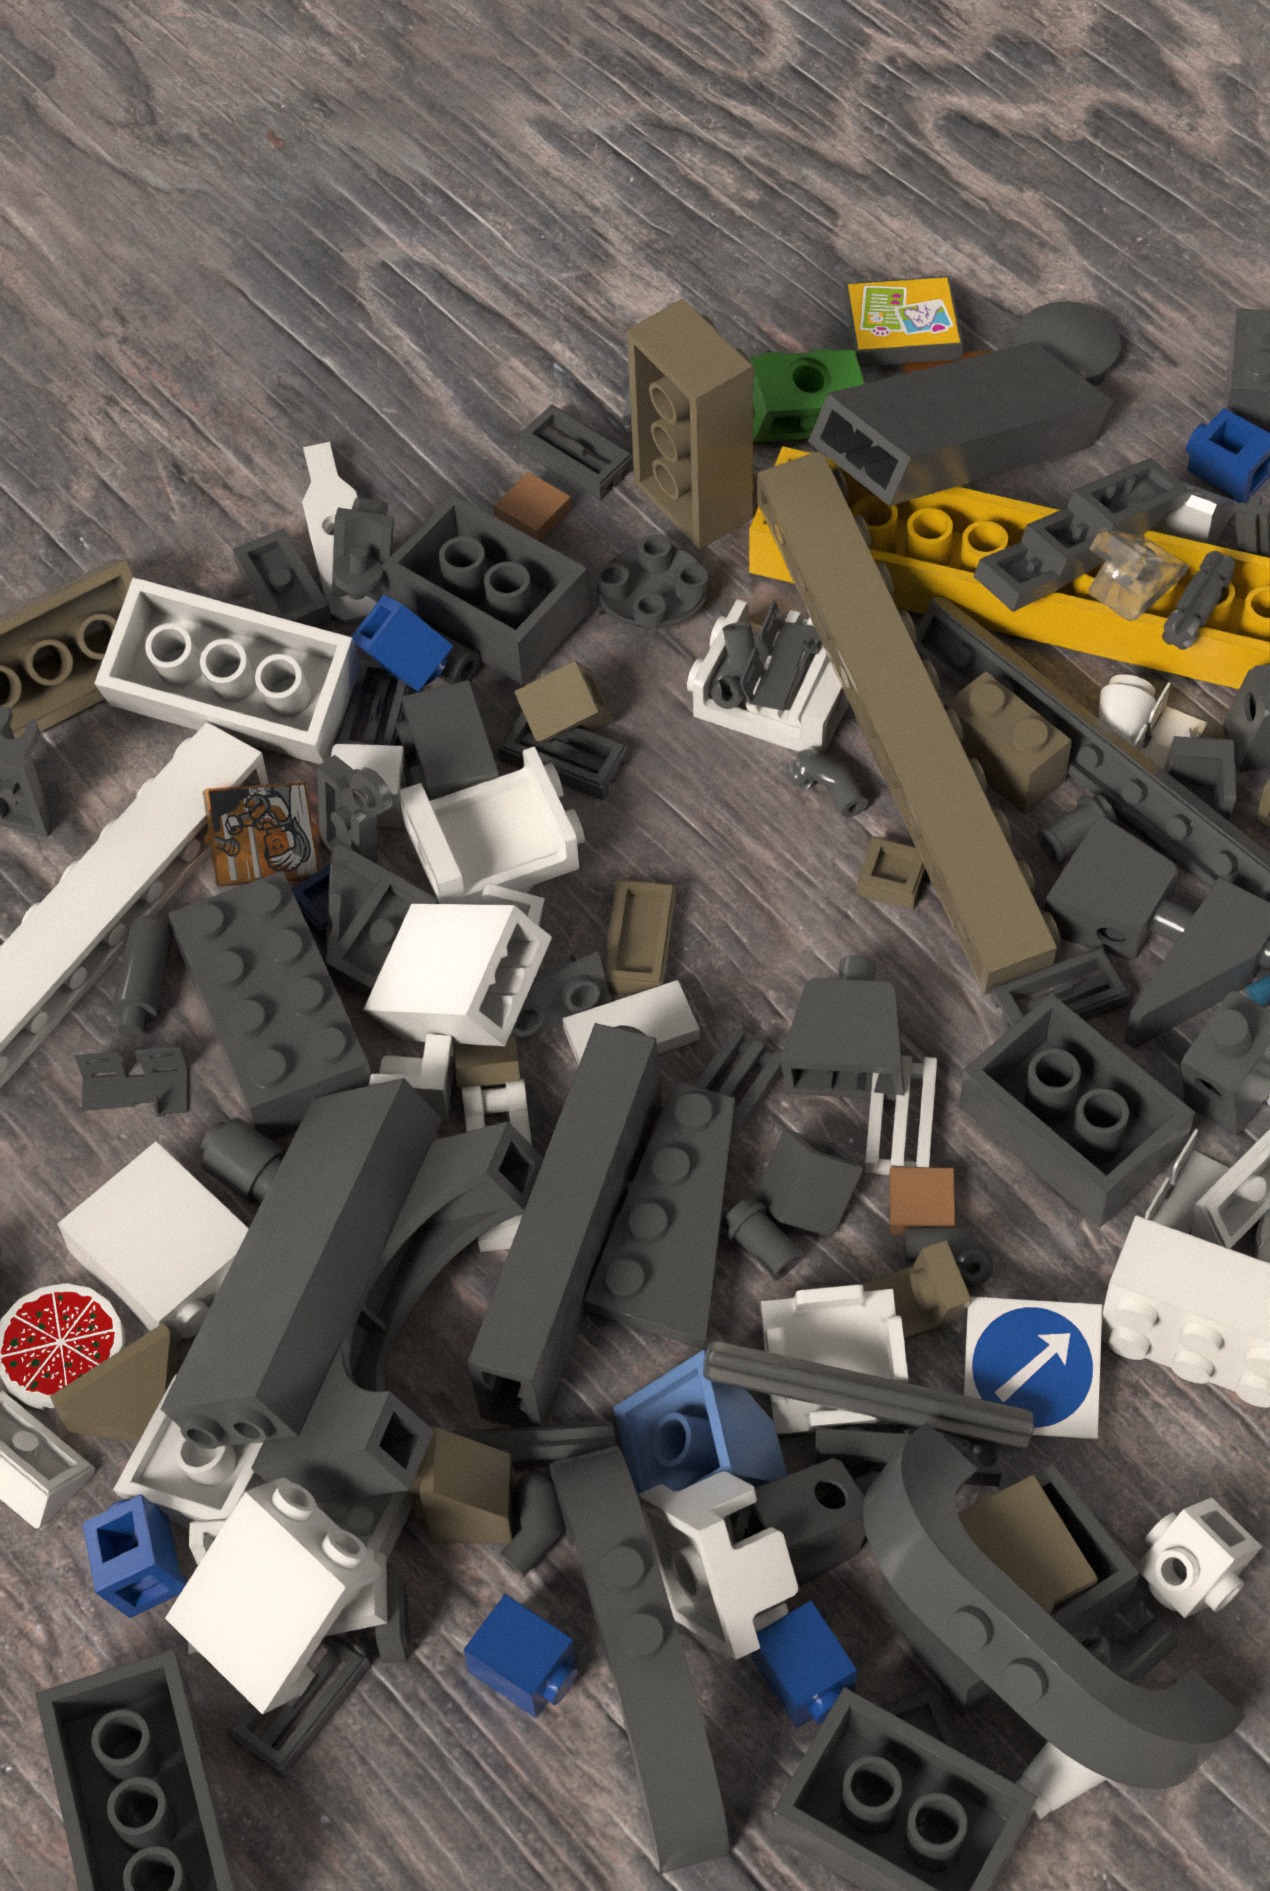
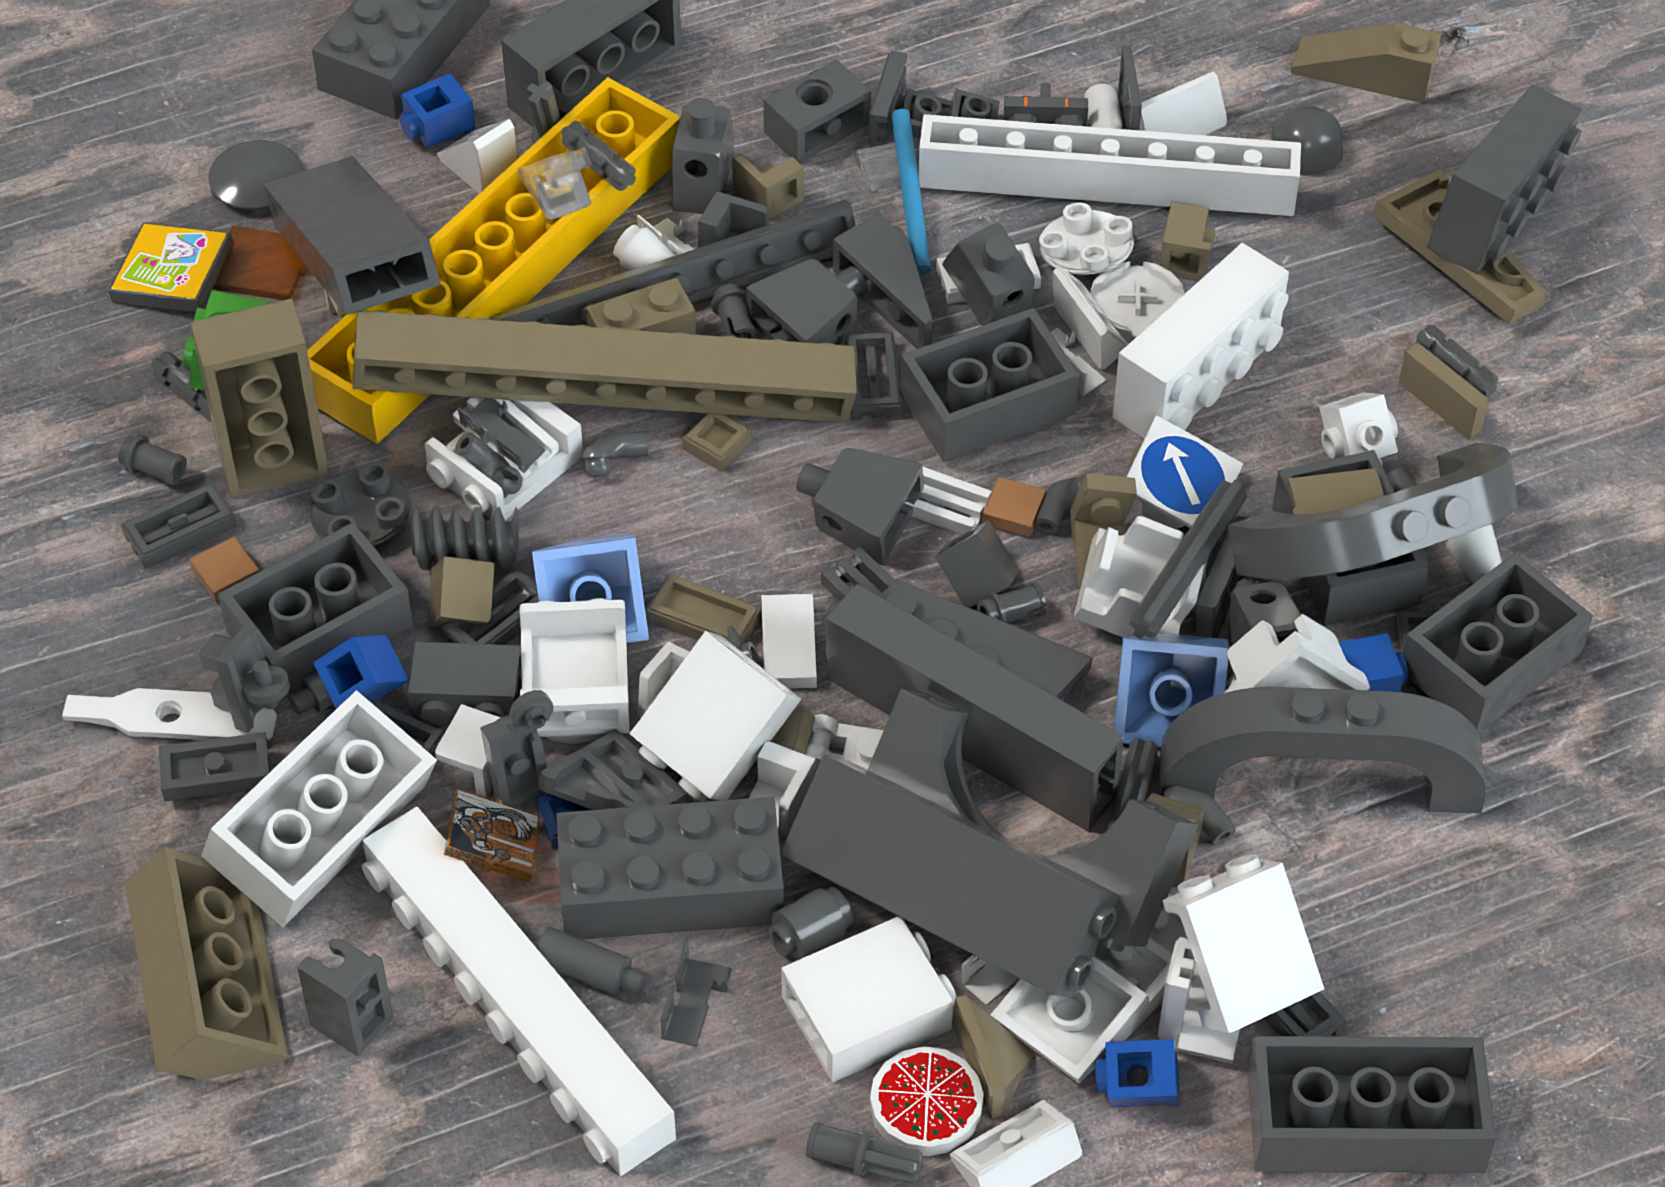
camera: 75 degrees left, 5 degrees down
(522, 1657) = (1305, 839): blue brick -> none
(628, 814) = (592, 570): none -> light blue slope
(637, 682) = (465, 538): none -> dark grey piece
(1058, 545) = (502, 200): dark grey slope -> none

